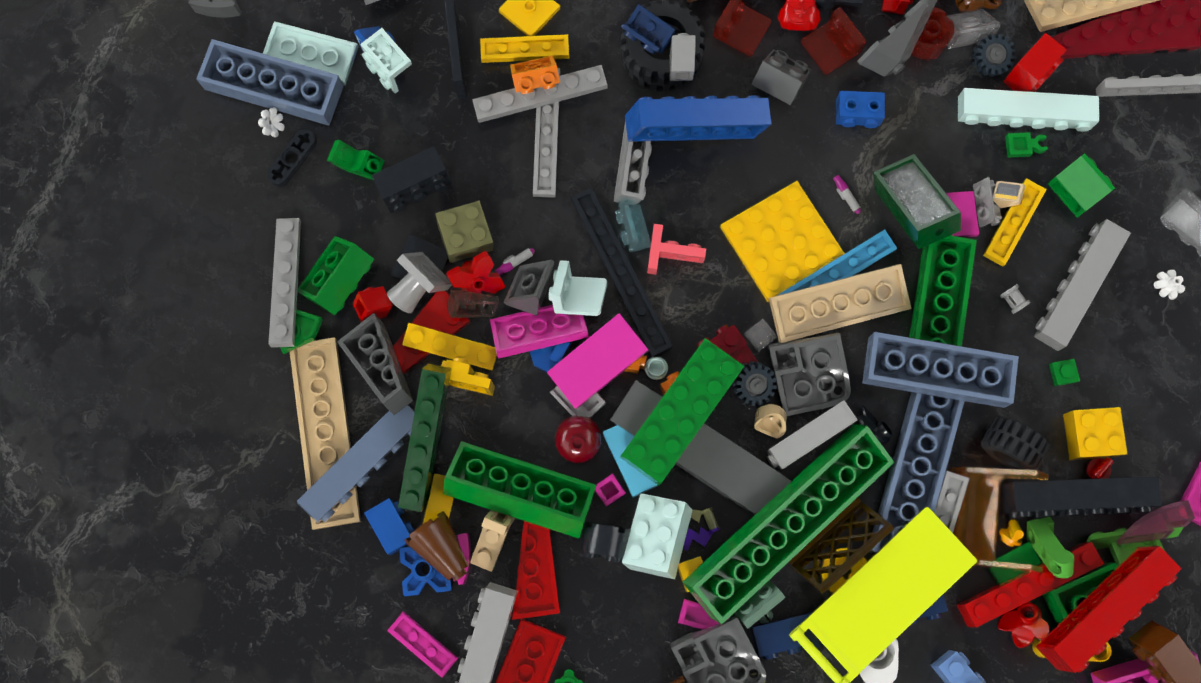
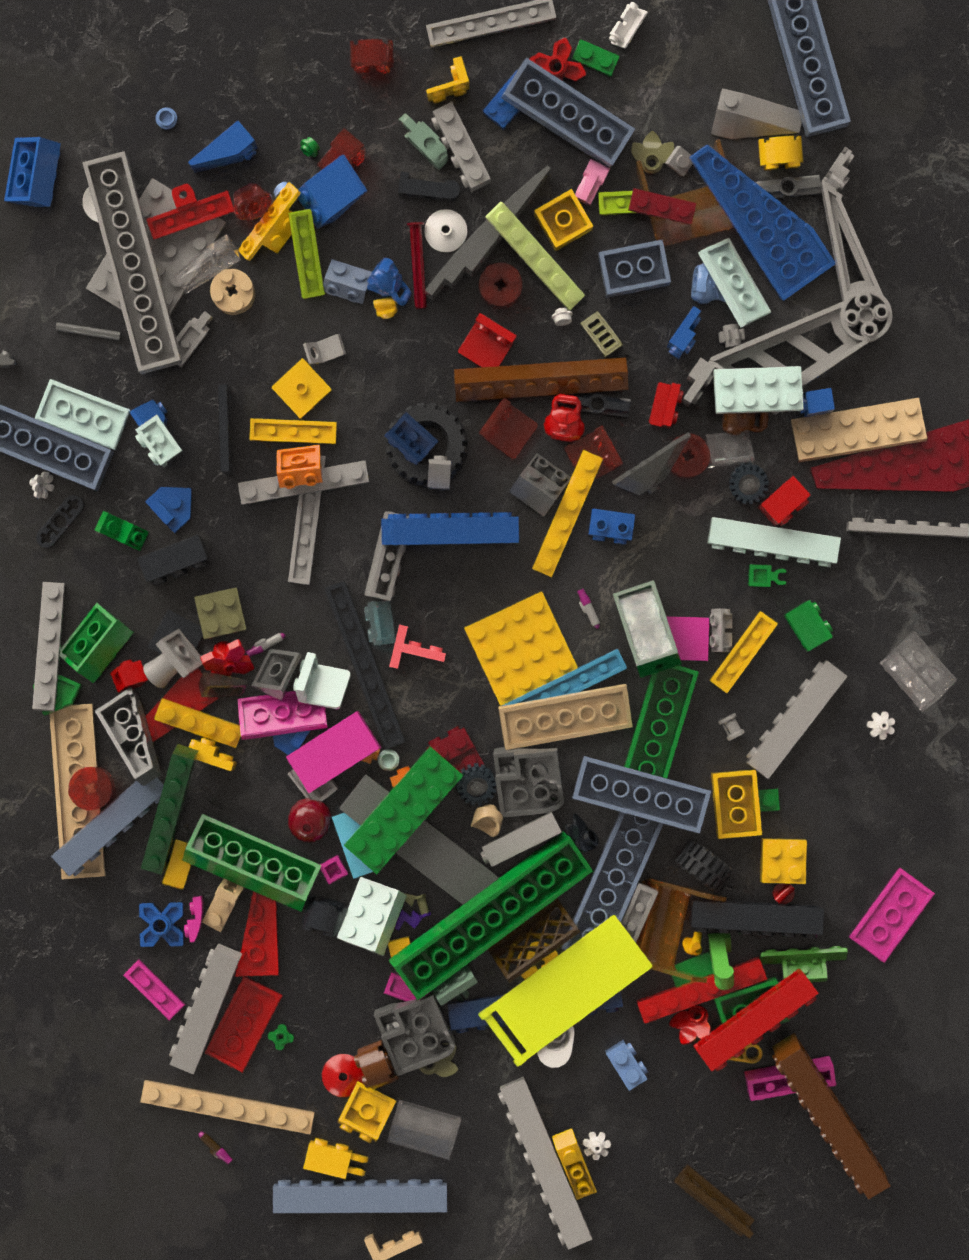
camera: 10 degrees right, 10 degrees up
(337, 437) = (103, 785): none -> clear red brick
(389, 525) = (132, 883): blue brick -> none
(406, 132) = (172, 506): none -> blue plate
(439, 547) = (176, 909): reddish brown cone -> none
(760, 335) = (488, 738): clear plate -> none
(813, 102) = (567, 513): none -> yellow plate
(1008, 193) = (740, 625): slope -> none
(1039, 377) = (736, 804): none -> yellow brick
(1159, 523) = (819, 948): clear pink slope -> none

